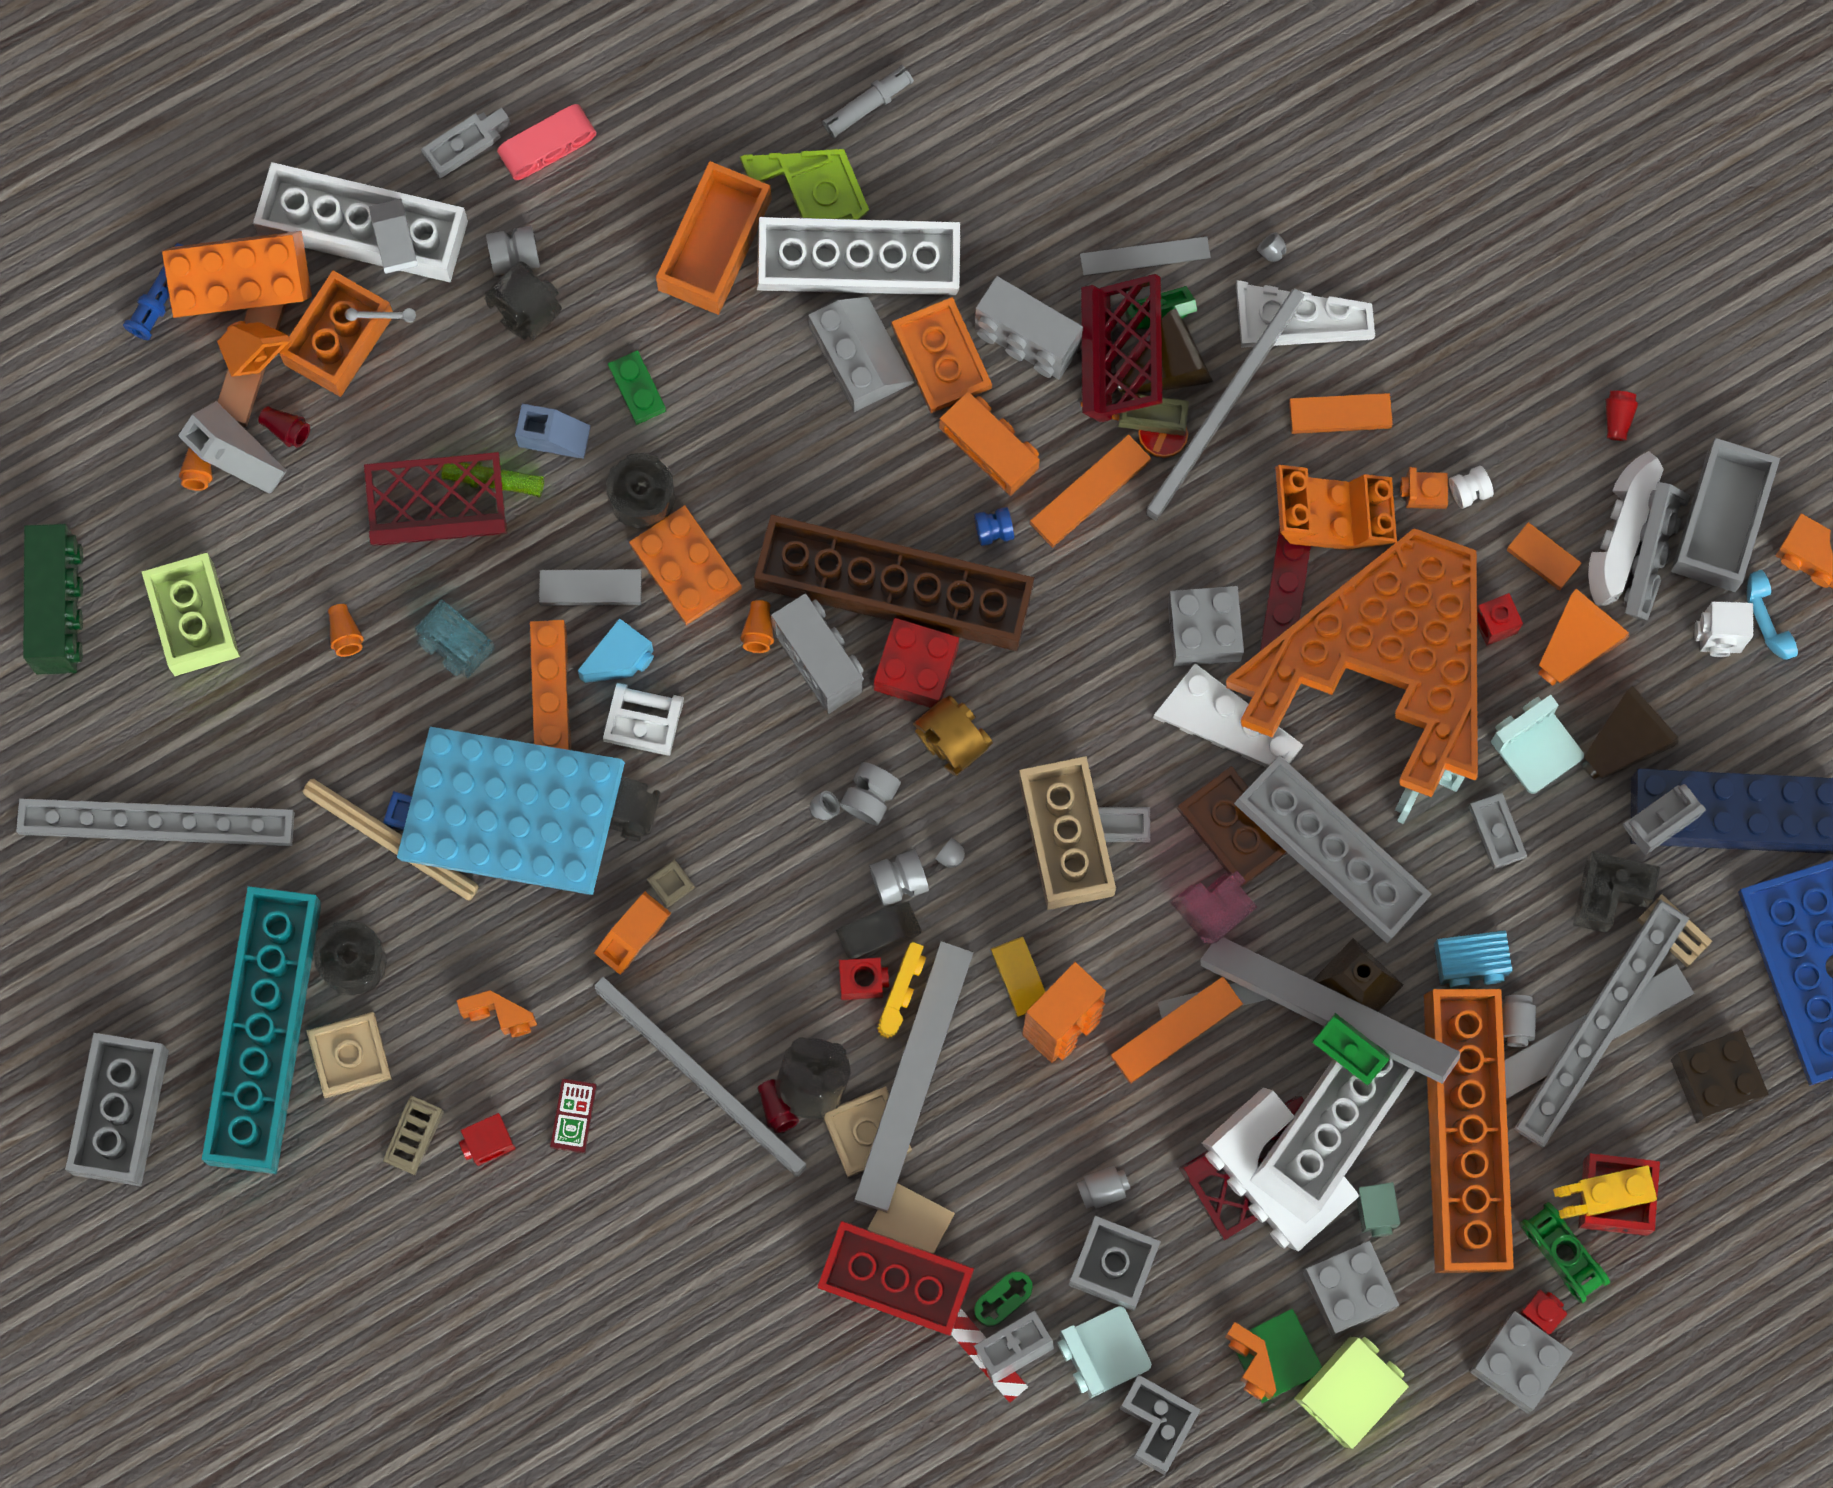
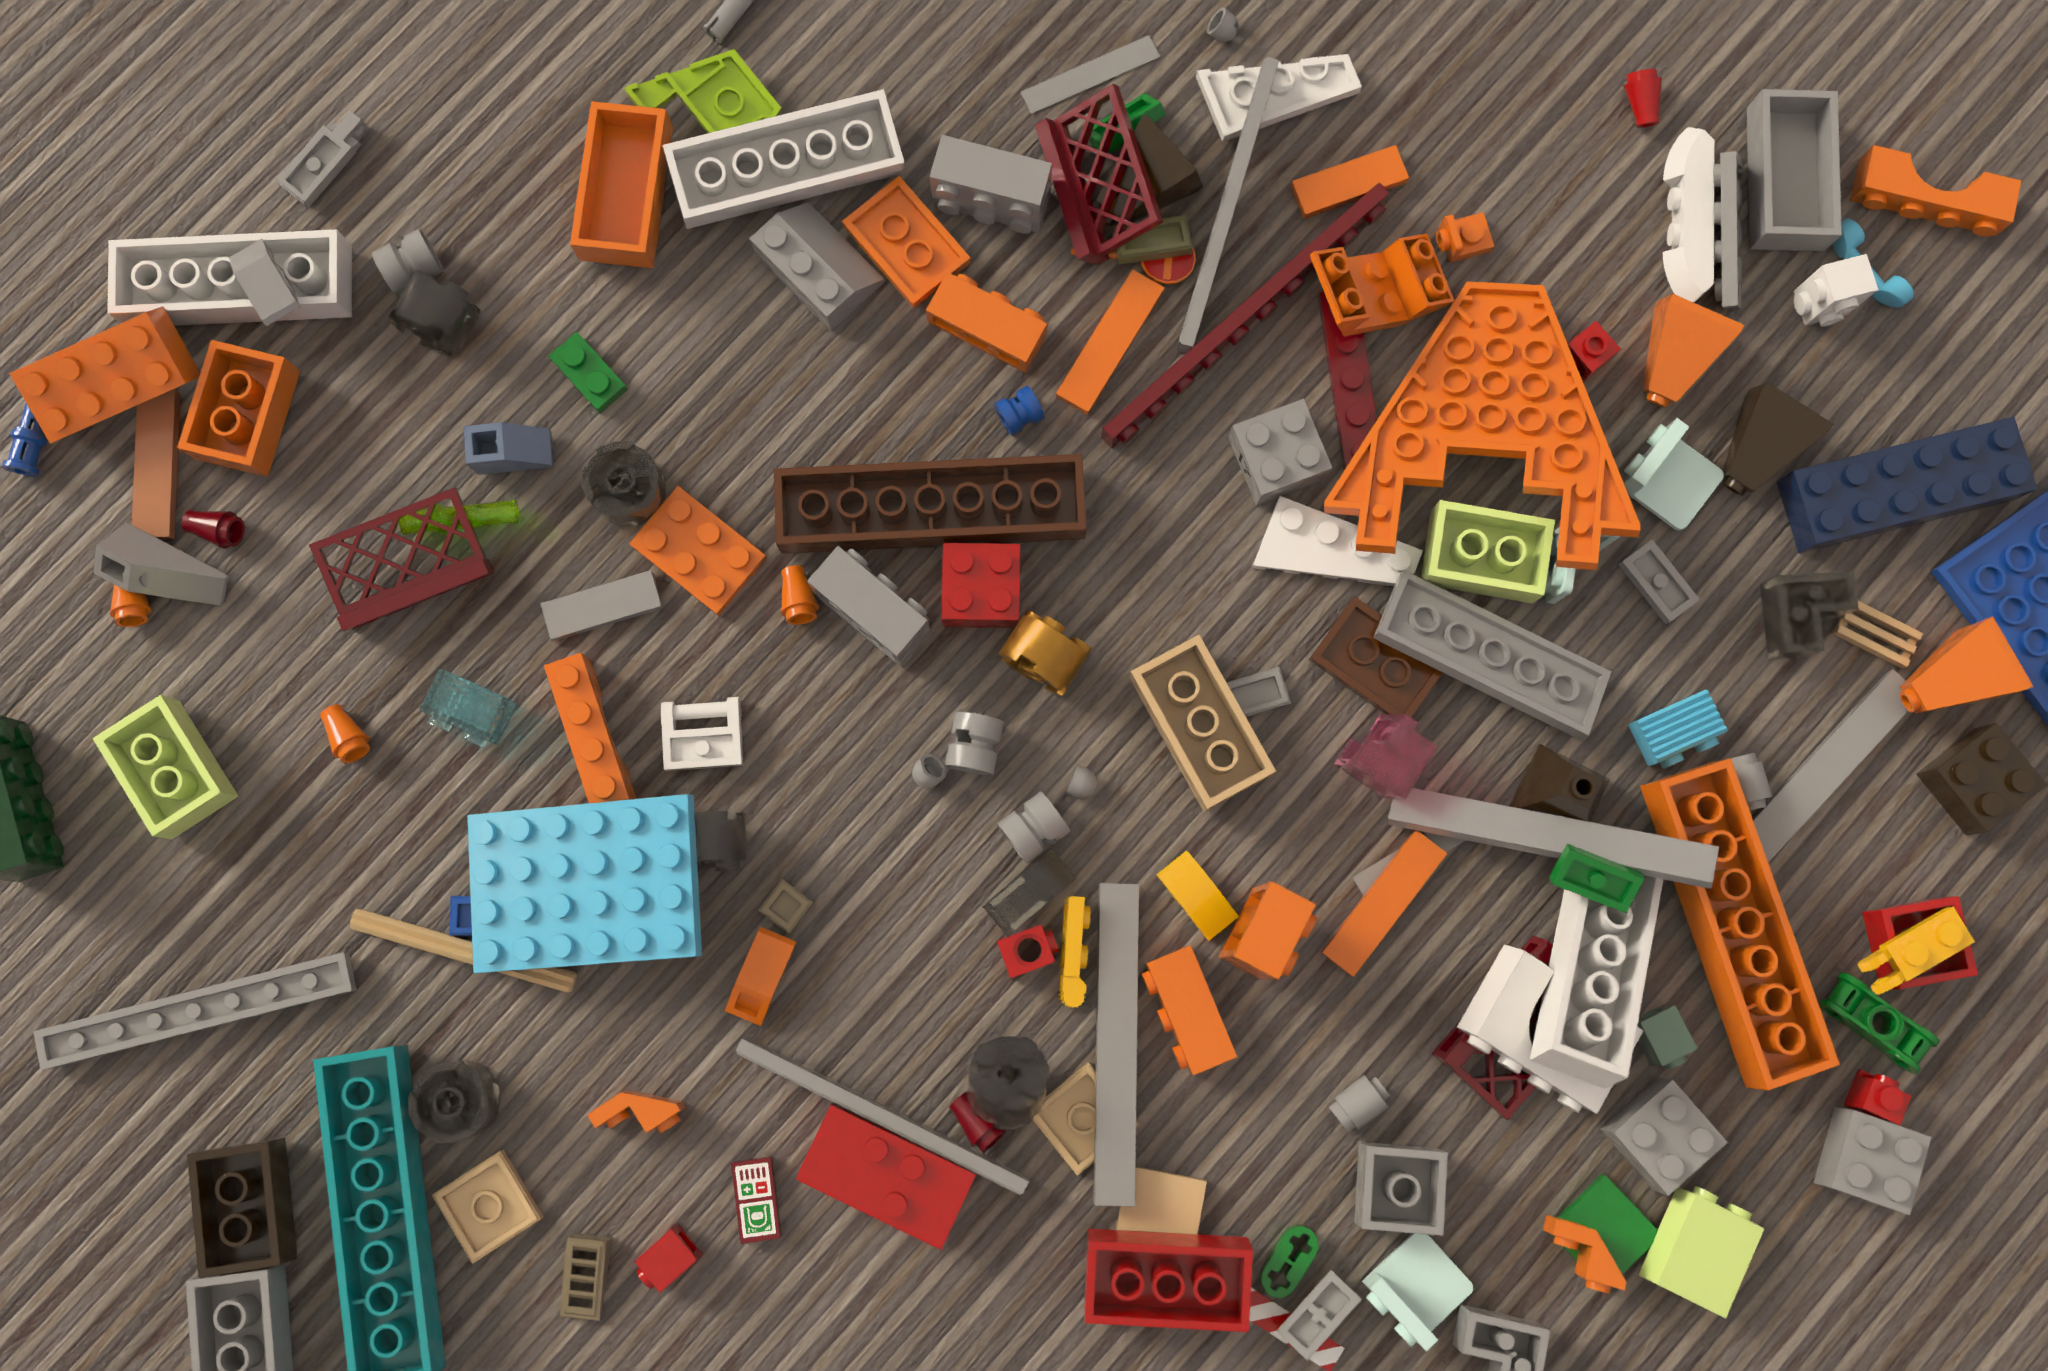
camera: 15 degrees left, 5 degrees up
(152, 989) = (242, 1207): none -> dark brown brick
(250, 347) = (144, 452): orange slope -> none
(407, 315) = (308, 365): light grey hinge -> none
(546, 142) = (411, 134): coral beam -> none
(617, 655) = (653, 672): medium azure slope -> none
(689, 1125) = (885, 1176): none -> red brick
(982, 1067) = (1188, 1011): none -> orange brick
(1201, 508) = (1235, 326): none -> dark red plate
(1354, 761) = (1488, 551): none -> yellowish green brick
(1470, 487) = (1511, 221): white wheel -> none
(1543, 556) = (1611, 272): orange tile -> none
(1601, 1023) = (1836, 760): light grey tile -> none
(1664, 818) = (1846, 517): light grey hinge -> none
(1729, 982) = (1965, 669): none -> orange slope

